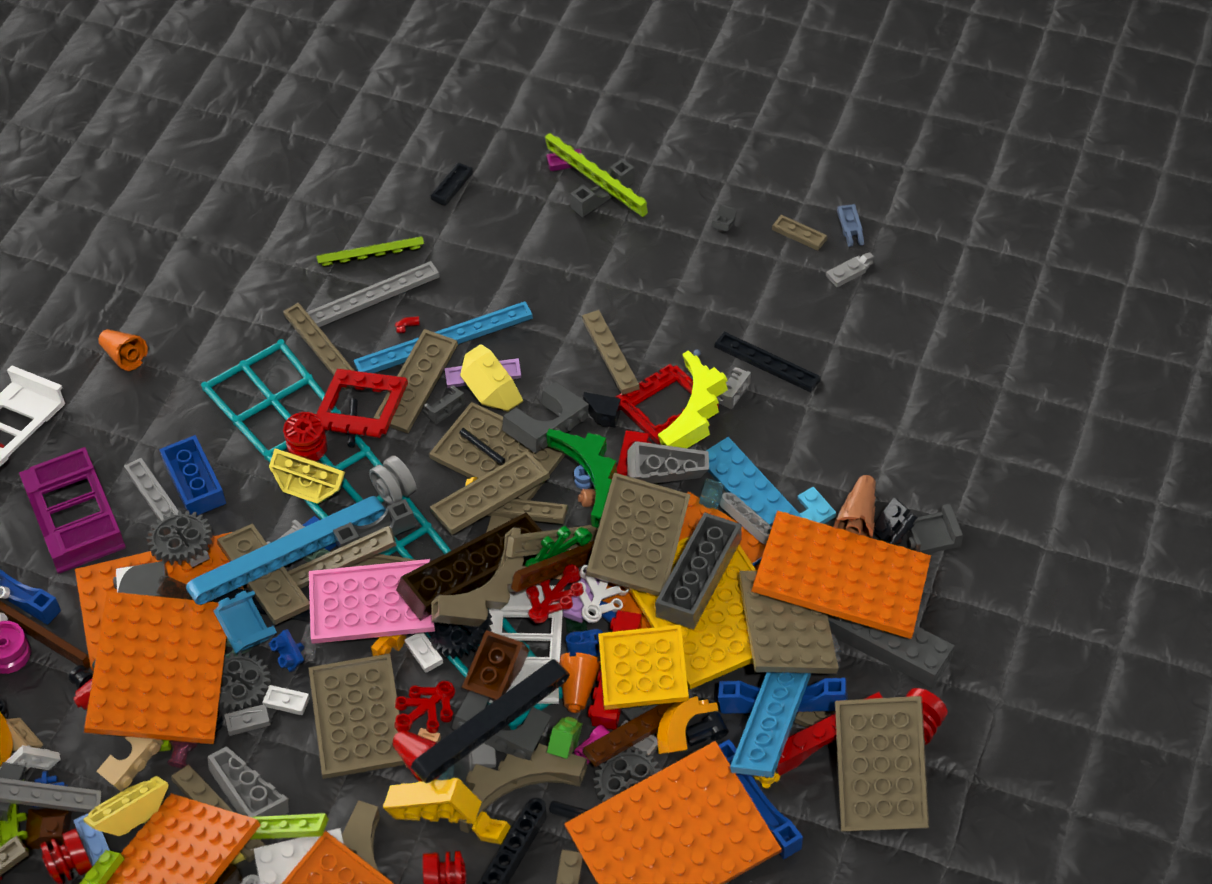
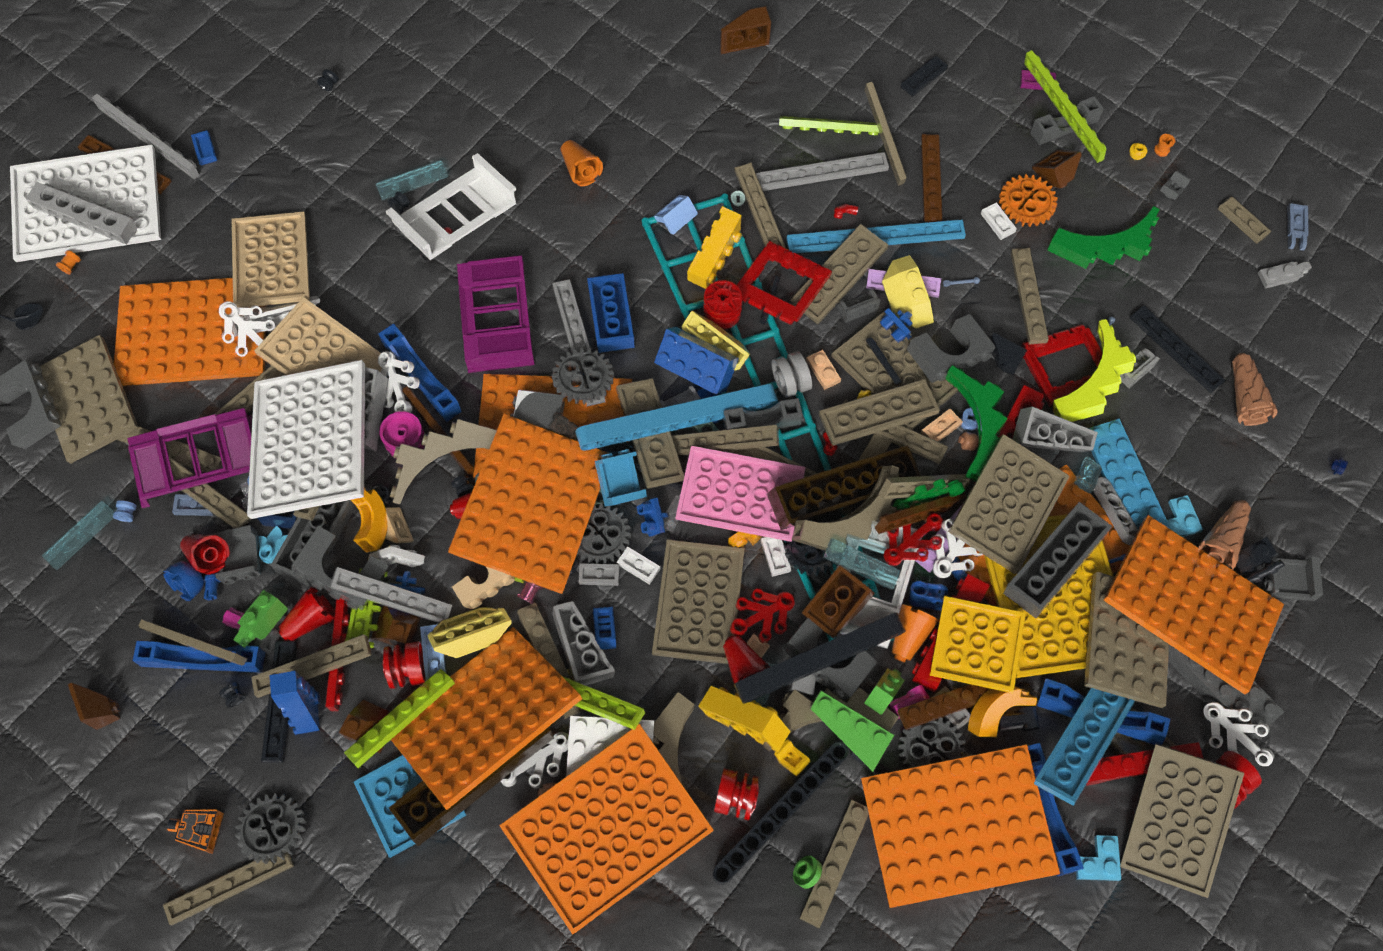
camera: 15 degrees right, 15 degrees up
(24, 660) = (415, 459): none -> dark tan arch
(236, 369) = (676, 213): none -> light blue panel
(260, 186) = (746, 31): none -> reddish brown slope
(268, 772) = (604, 640): none -> blue slope
(284, 388) = (715, 248): none -> yellow wedge
(290, 340) = (734, 198): none -> light aqua hinge
(292, 494) = (696, 360): none -> blue brick
(425, 472) = (823, 369): none -> light nougat plate
(426, 242) = (885, 133): none -> dark tan tile
(450, 540) = (828, 448): none -> red arm
(484, 272) = (931, 178): none -> reddish brown plate
(492, 413) = (891, 319): none -> blue hips
(508, 625) = (861, 563): none -> clear light blue tile
(527, 362) = (946, 283): none -> sand blue hinge
(542, 778) = (856, 731): none -> bright green wedge
(558, 489) = (942, 426): none -> light nougat plate
(561, 293) = (998, 221): none -> white plate
(585, 268) = (1022, 191): none -> orange gear
(606, 232) = (1058, 167): none -> reddish brown slope
(653, 296) = (1085, 249): none -> green arch
(680, 198) = (1135, 154): none -> yellow plate
(704, 182) = (1166, 141): none -> orange bush
(827, 833) = (1105, 864): none -> medium azure plate
(848, 382) = (1252, 395): none -> nougat cone
(914, 675) = (1236, 730): none -> white plant
(948, 422) = (1339, 466): none -> clear blue plate

